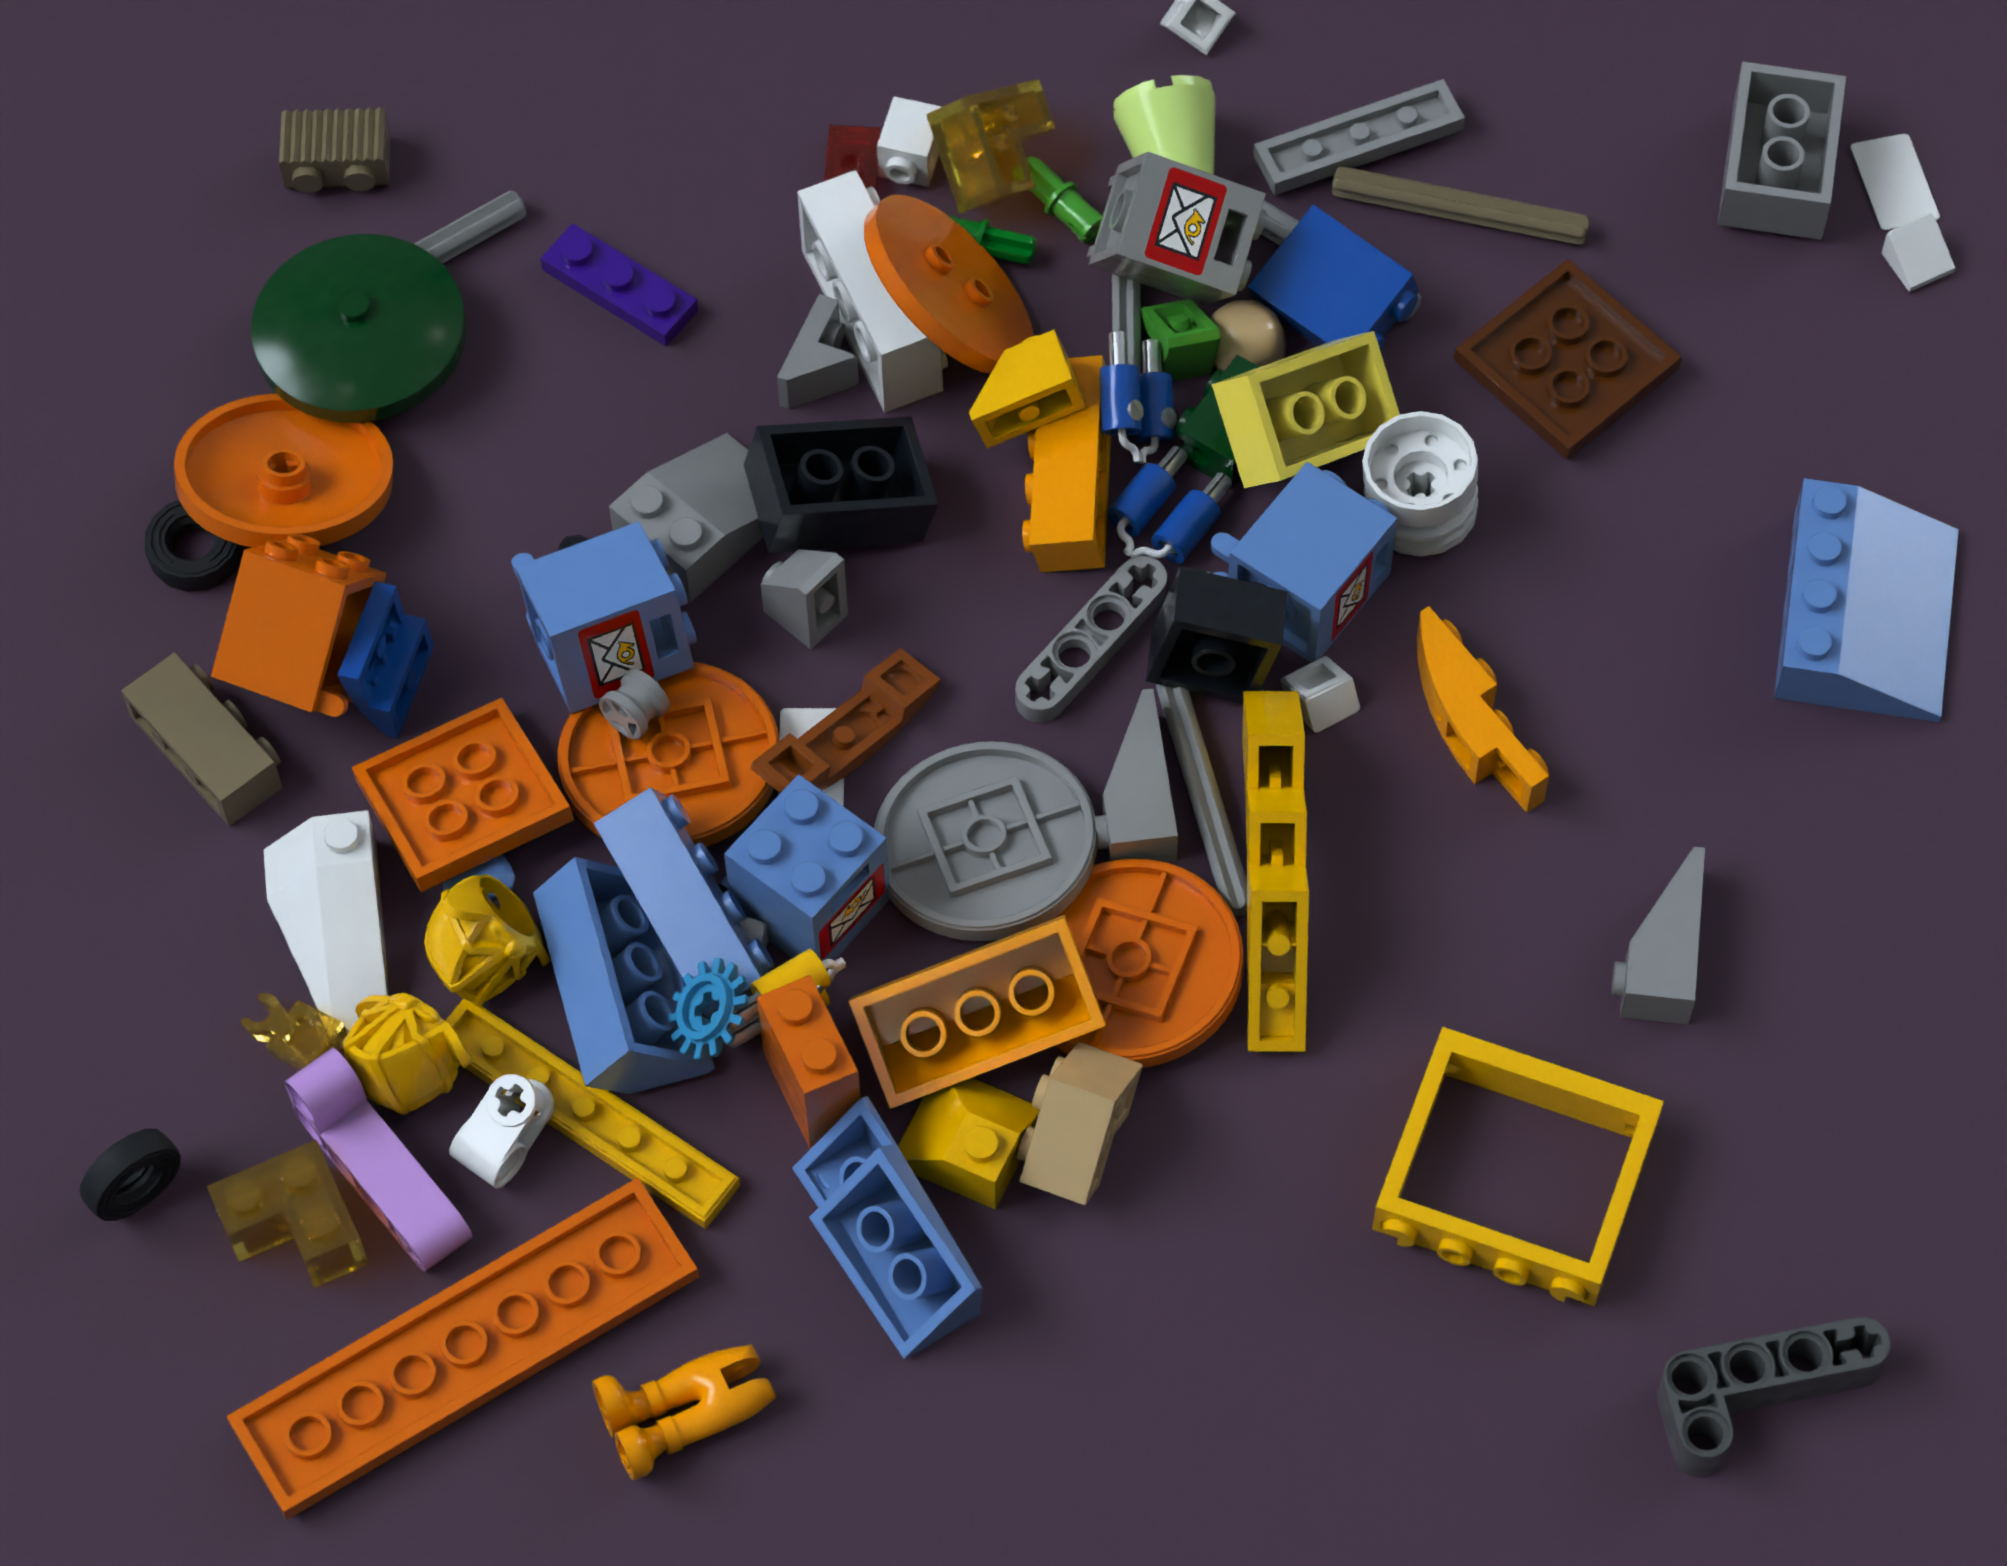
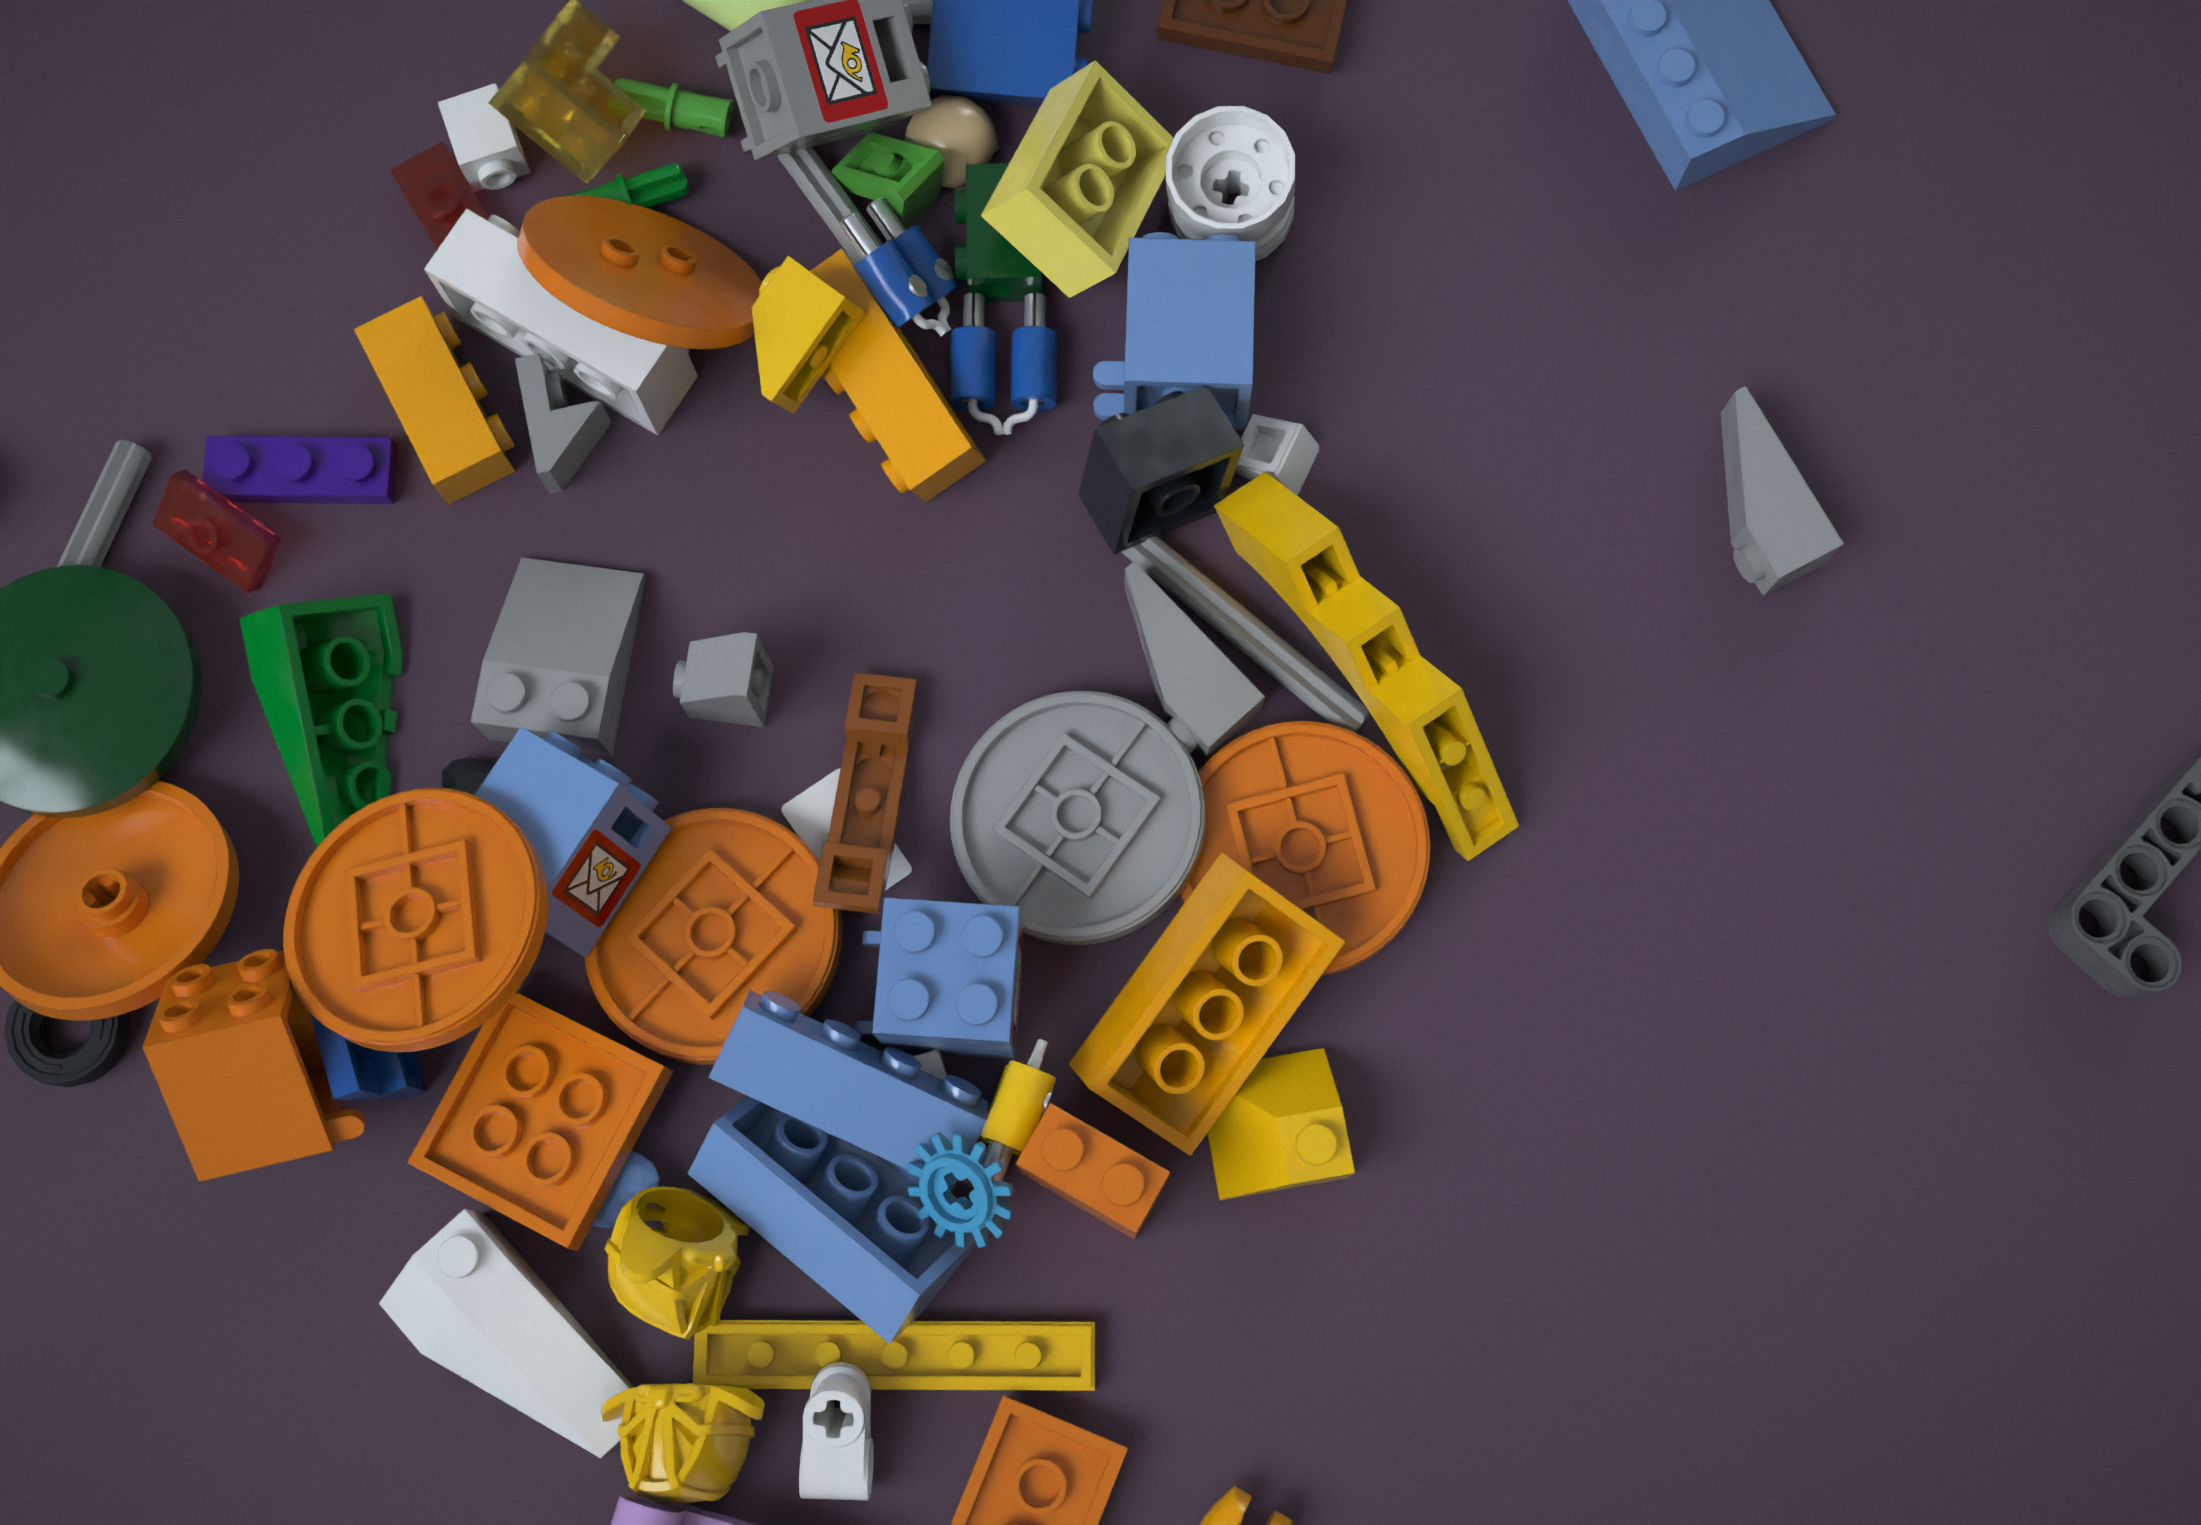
camera: 35 degrees left, 15 degrees up
(203, 737) = (231, 1232): dark tan brick -> none
(295, 1035) = (564, 1478): clear yellow plate -> none
(476, 592) = (415, 920): none -> orange plate
(525, 440) = (328, 698): none -> green wedge
(532, 288) = (216, 531): none -> clear red plate
(634, 704) = (647, 912): light grey wheel -> none
(747, 293) = (437, 399): none -> light orange brick
(840, 484) = (682, 547): black brick -> none
(887, 1232) = (1276, 1283): medium blue slope -> none
(1077, 1119) = (1379, 1046): tan brick -> none
(1085, 634) = (1022, 541): light grey beam -> none
(1462, 704) = (1405, 378): light orange slope -> none
(1543, 1086) = (1870, 687): yellow window -> none

